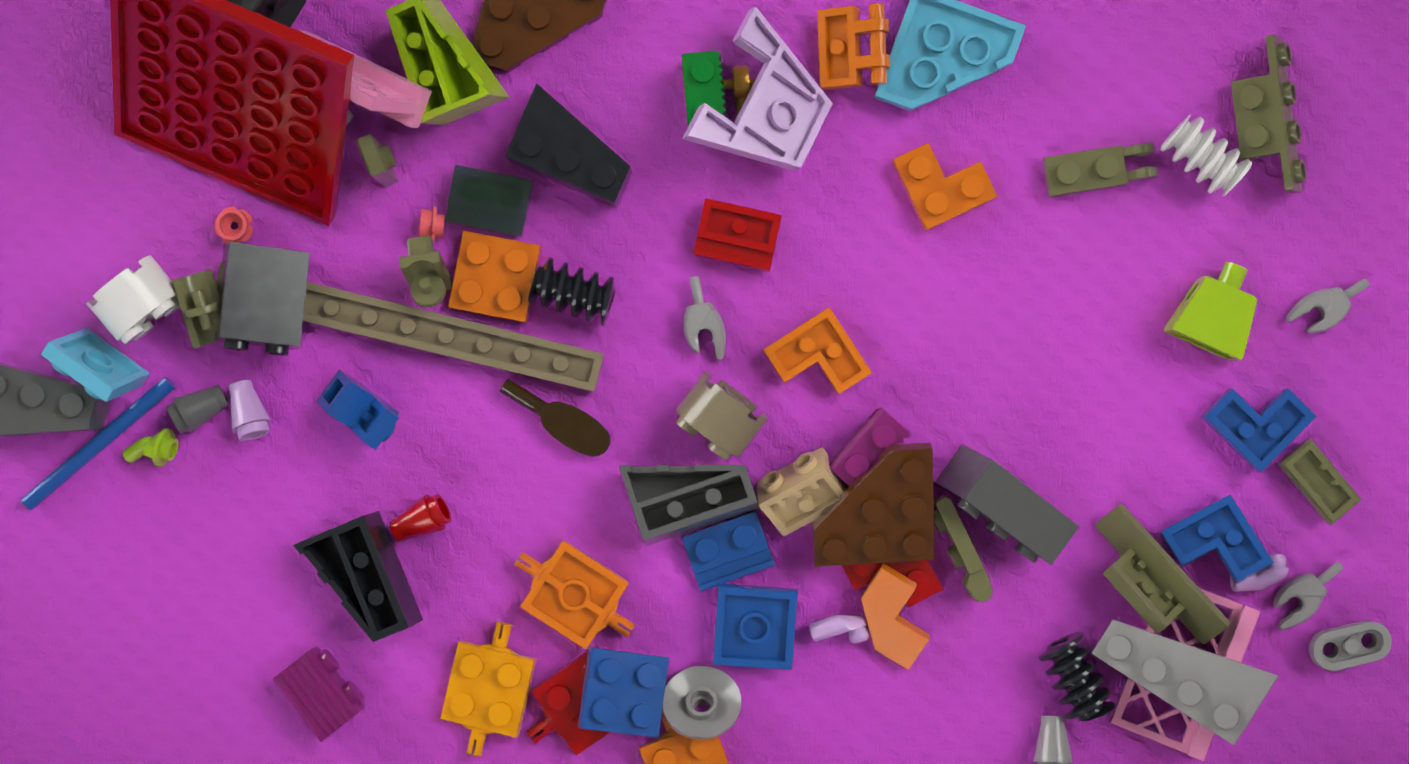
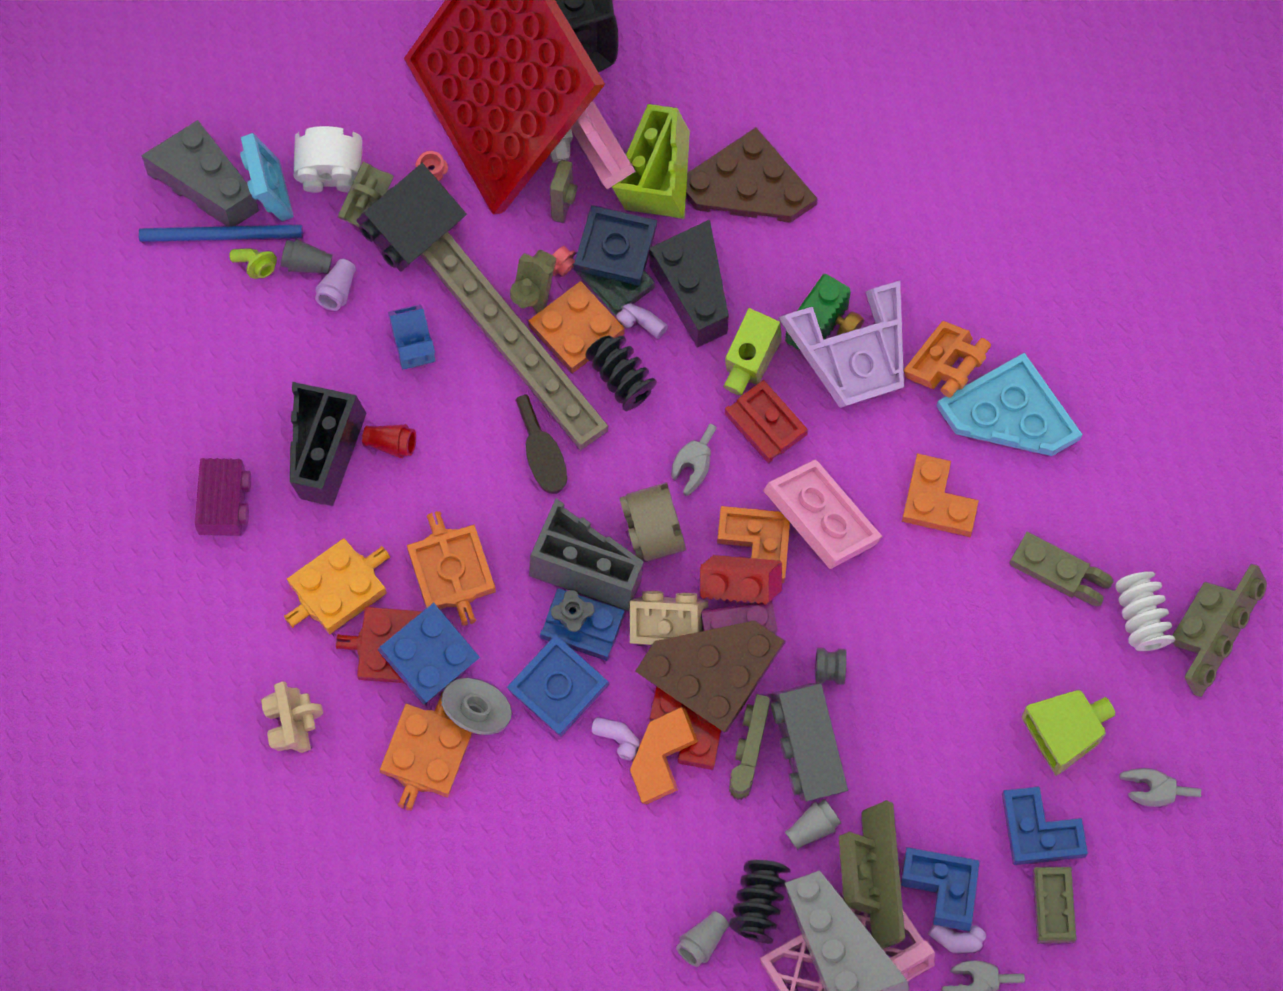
camera: 30 degrees right, 20 degrees down
(469, 174) = (615, 245): none -> dark blue tile
(546, 220) = (632, 313): none -> lavender arm
(671, 165) = (756, 339): none -> lime torso
(708, 563) = (572, 621): none -> dark grey plate
(839, 410) = (740, 579): none -> red brick
(859, 286) = (822, 513): none -> bright pink plate
(972, 420) = (830, 666): none -> dark grey wheel
(1067, 574) = (814, 824): none -> light grey cone

